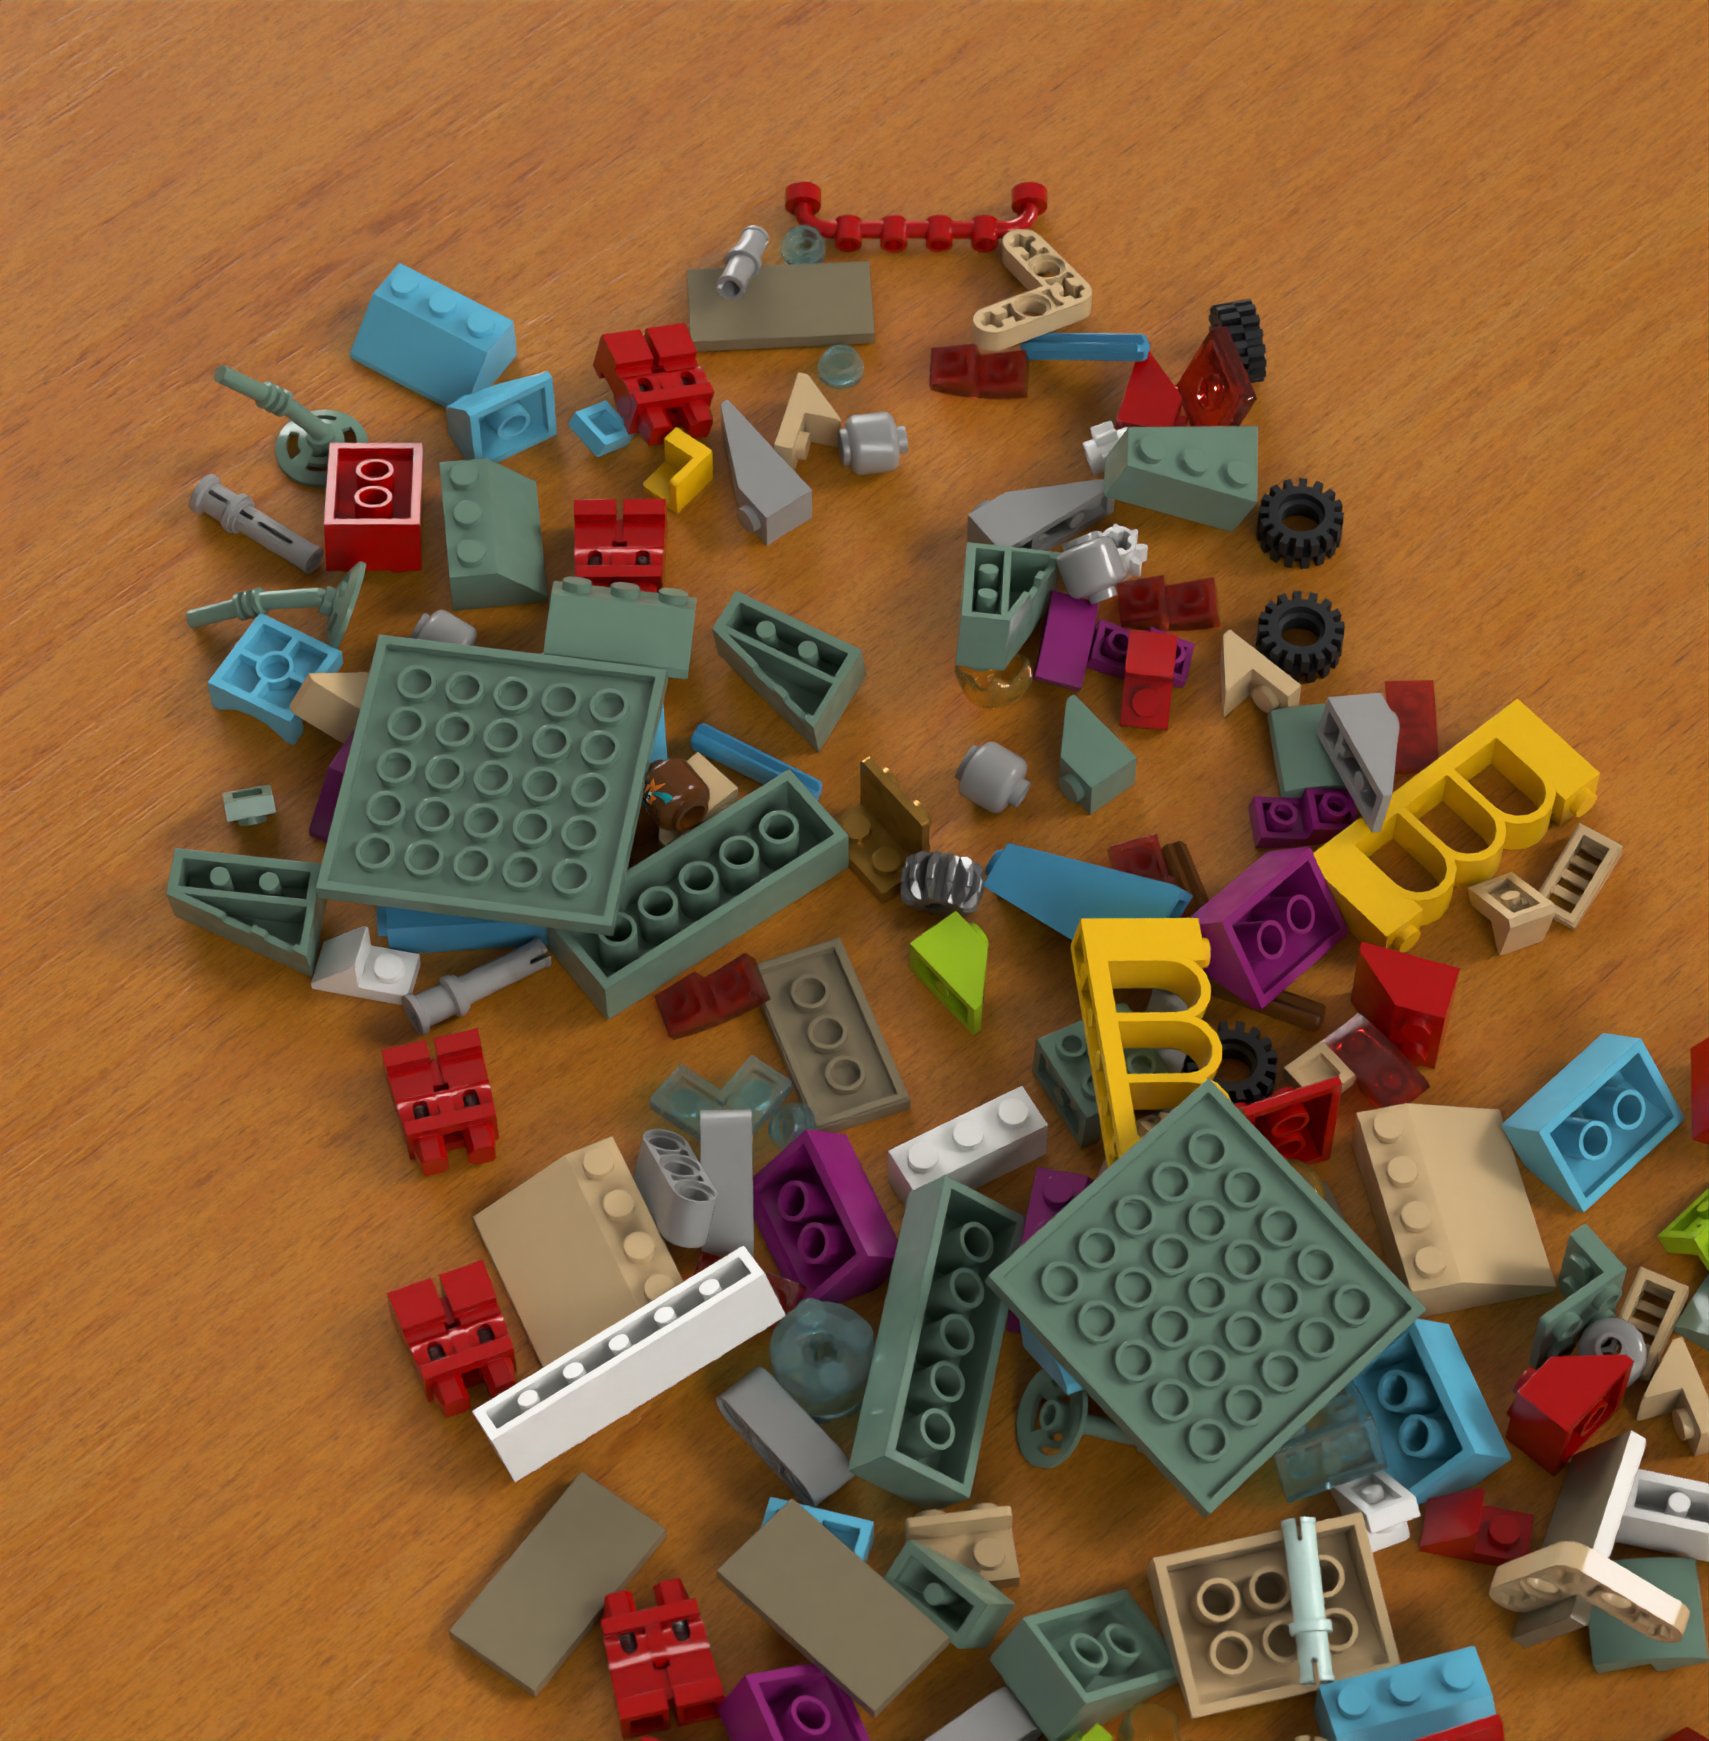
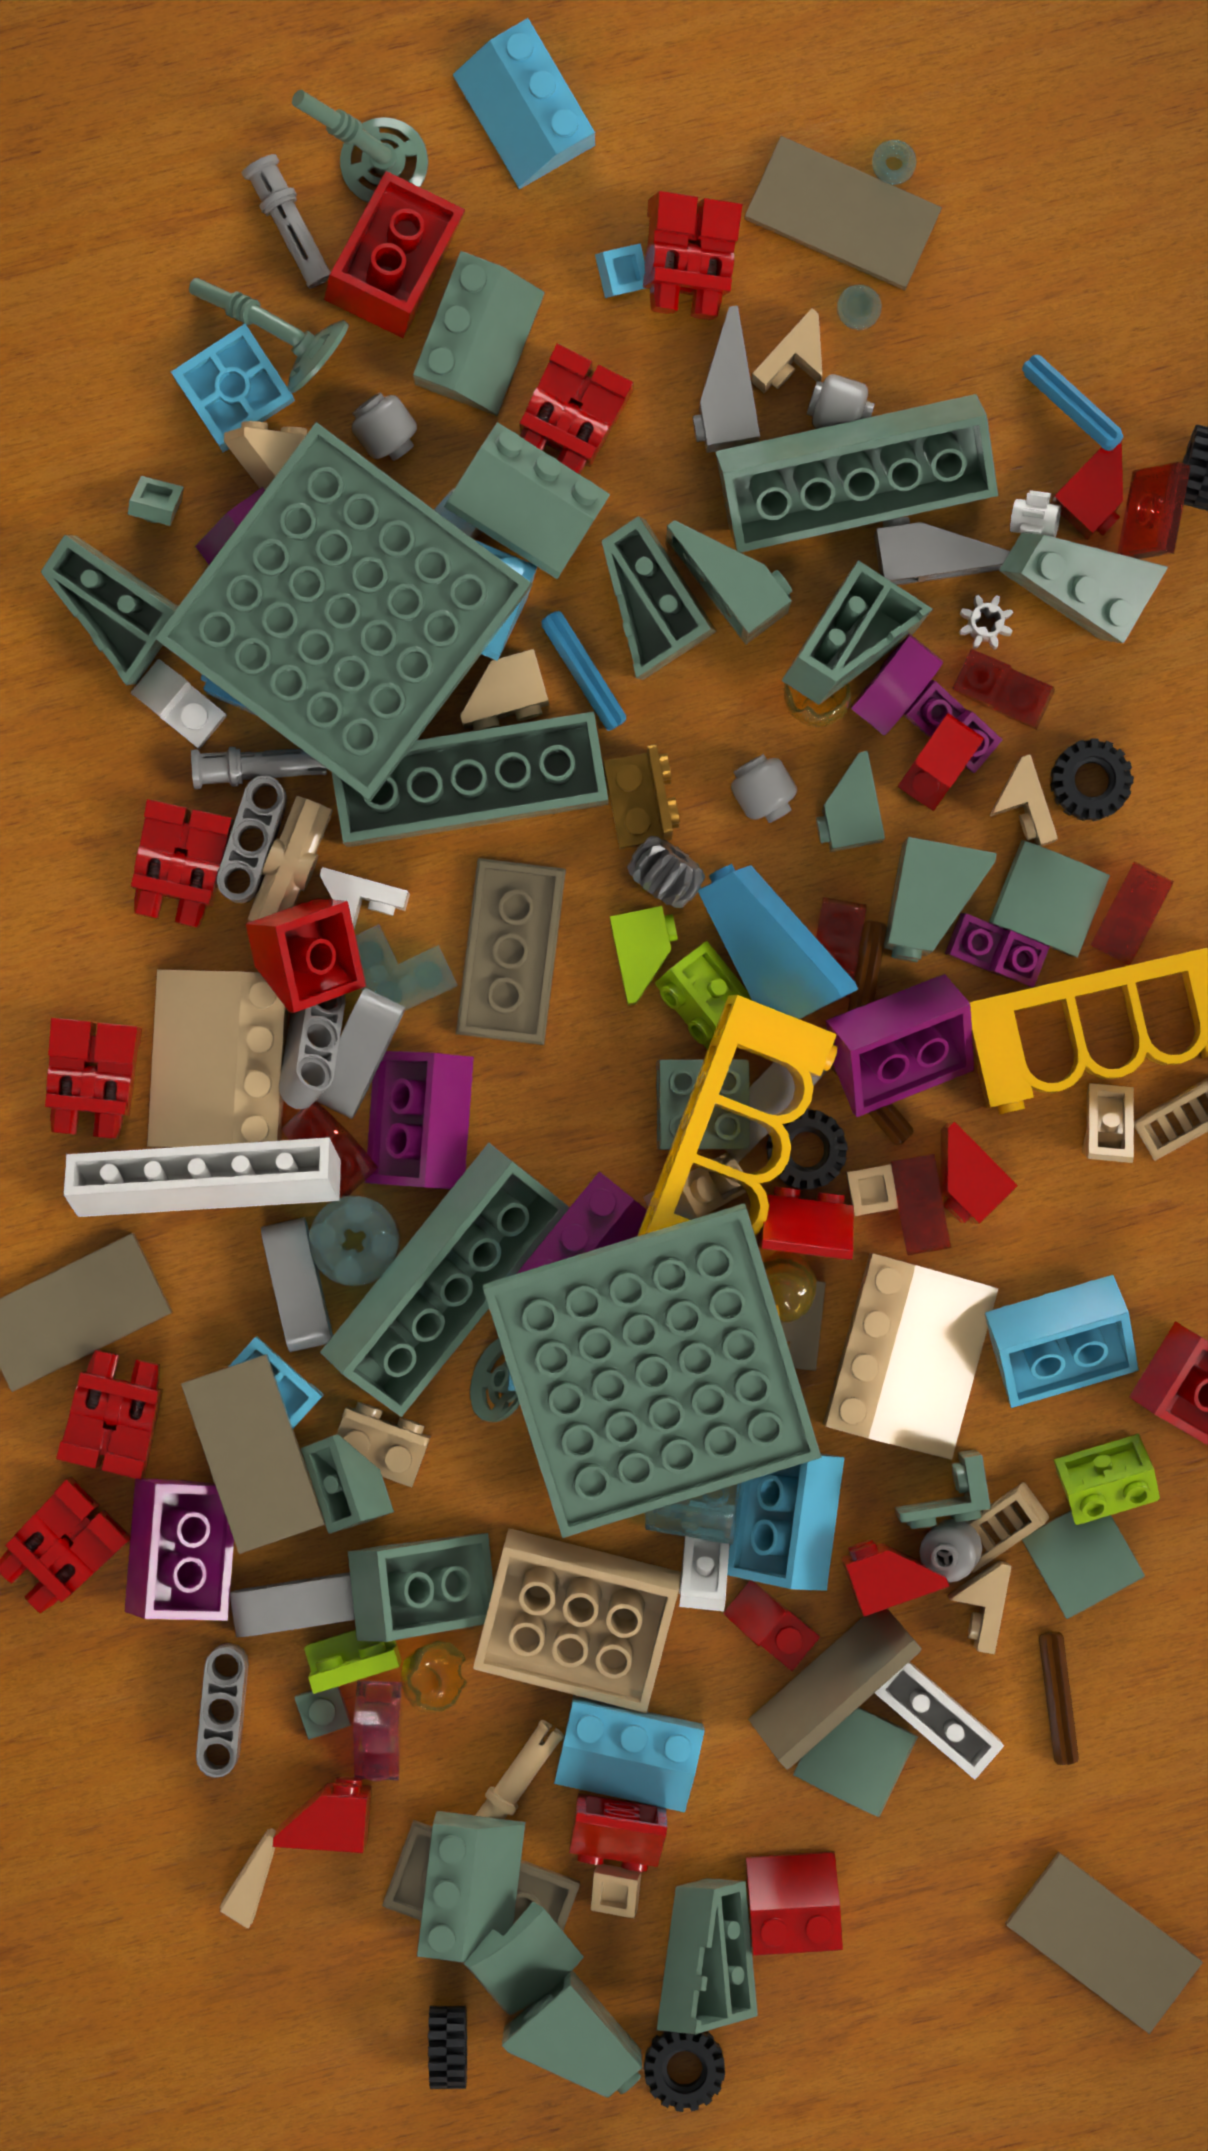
camera: 30 degrees right, 30 degrees up
(503, 418) = (537, 220): medium azure slope -> none
(508, 1029) = (251, 817): none -> light grey beam
(559, 1055) = (291, 858): none -> tan piece
(622, 1100) = (307, 953): none -> red slope
(635, 1046) = (355, 889): none -> white slope
(675, 795) = (487, 691): reddish brown head -> none
(684, 472) = (665, 348): yellow panel -> none
(709, 1001) = (437, 872): clear red slope -> none
(742, 263) = (827, 160): light grey pin -> none
(789, 1122) = (438, 1023): clear light blue plate -> none
(848, 230) = (1017, 204): red bar -> none
(859, 605) = (737, 584): none -> sand green slope
(921, 478) = (857, 473): none -> sand green brick
(967, 373) = (973, 371): clear red slope -> none
(972, 1146) = (559, 1118): white brick -> none
(1003, 322) = (1067, 334): tan beam -> none
(1037, 983) = (699, 990): none -> lime bracket
(1091, 567) = (947, 638): light grey head -> none
(1205, 780) = (930, 893): none -> sand green slope
(1300, 502) = (1175, 649): black tyre -> none
(1307, 1602) = (590, 1657): light aqua pin -> none
(1362, 744) = (1072, 926): light grey slope -> none
(1578, 1570) = (806, 1744): tan beam -> none

